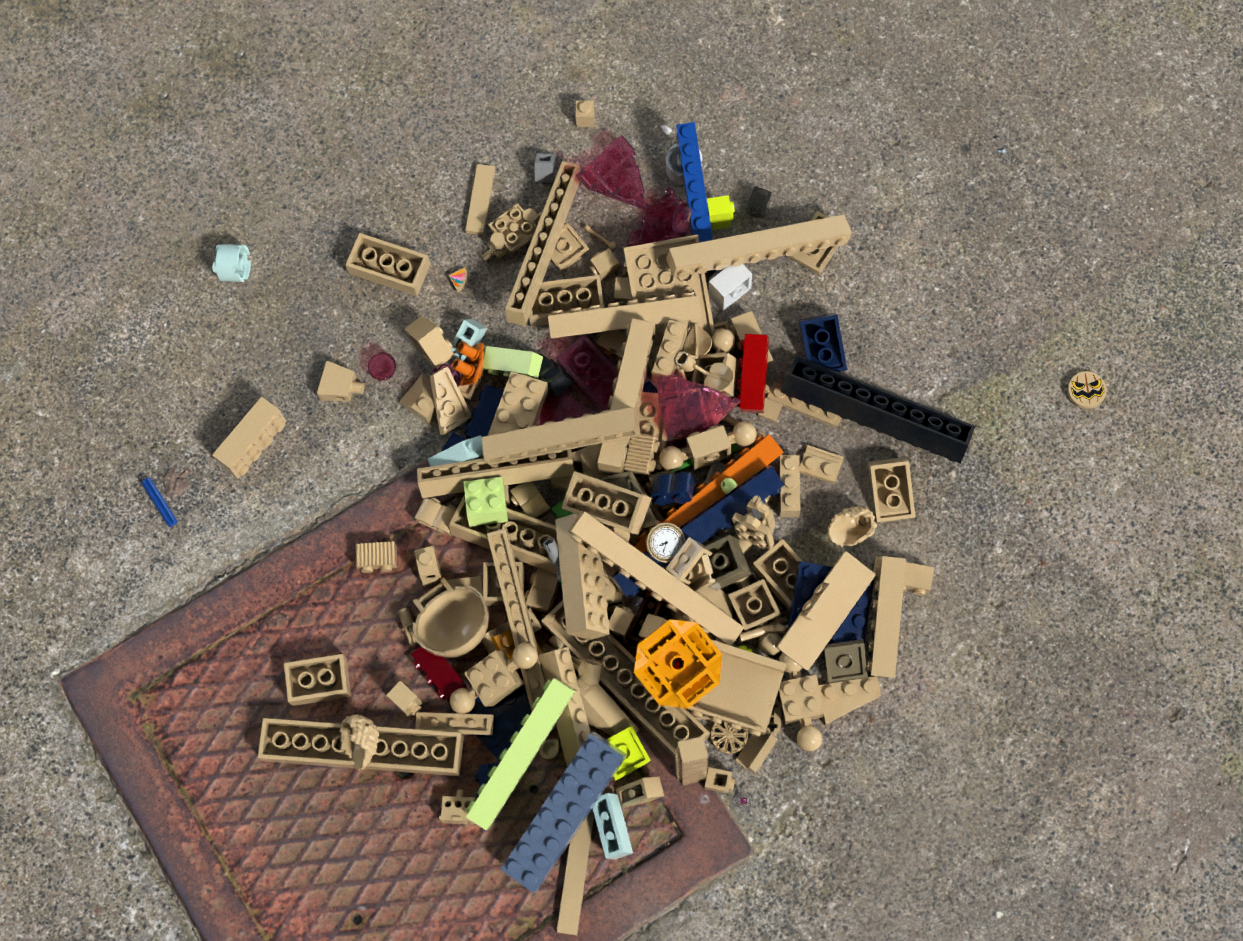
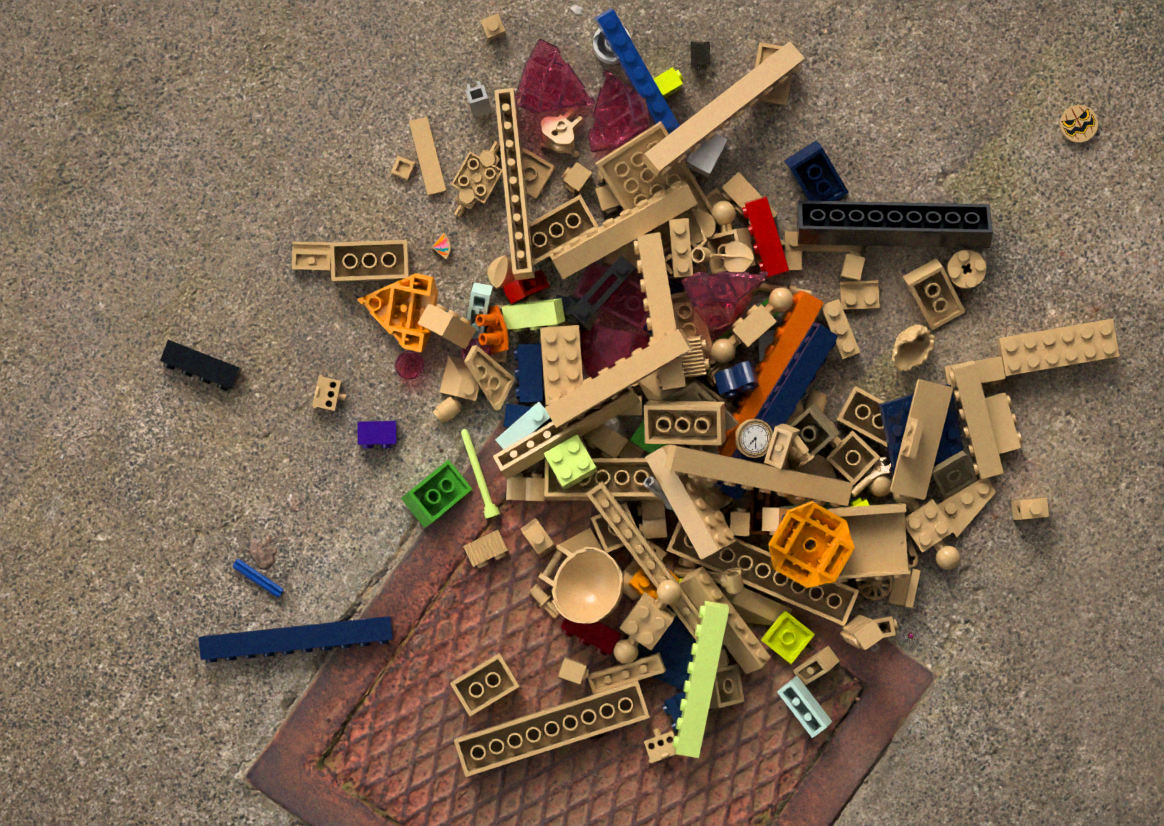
camera: 30 degrees left, 15 degrees up
(166, 568) = (295, 638): none -> dark blue brick
(199, 297) = (200, 364): none -> black brick
(232, 263) = (218, 320): light aqua brick -> none
(250, 438) = (317, 486): tan brick -> none
(294, 360) = (322, 390): none -> tan piece
(325, 415) = (377, 433): none -> dark purple brick
(337, 242) = (311, 256): none -> tan plate
(338, 383) = (375, 397): tan torso -> none
(353, 489) = (436, 493): none -> bright green slope
(359, 739) = (553, 726): tan piece -> none
(395, 310) = (401, 307): none -> light orange wedge
(397, 524) = (490, 508): none -> yellowish green piece
(398, 419) = (448, 409): none -> tan brick
(454, 201) = (403, 168): none -> tan tile
(498, 323) = (500, 272): none -> tan piece
(517, 338) = (524, 288): none -> red slope
(541, 775) = (727, 687): none -> tan slope
(563, 812) = (760, 713): sand blue brick -> none
(575, 878) = (788, 757): tan tile -> none
(607, 218) = (560, 131): none -> tan hinge
(608, 352) = (583, 310): none -> black container
(728, 485) = (787, 357): yellowish green hinge -> none
(756, 525) = (824, 389): tan piece -> none
(824, 435) = (852, 266): none -> tan brick
(909, 723) = (1030, 508): none -> tan torso
(912, 632) = (1003, 423): none -> tan brick
(934, 486) = (975, 264): none -> tan brick
(992, 582) = (1058, 347): none -> tan brick

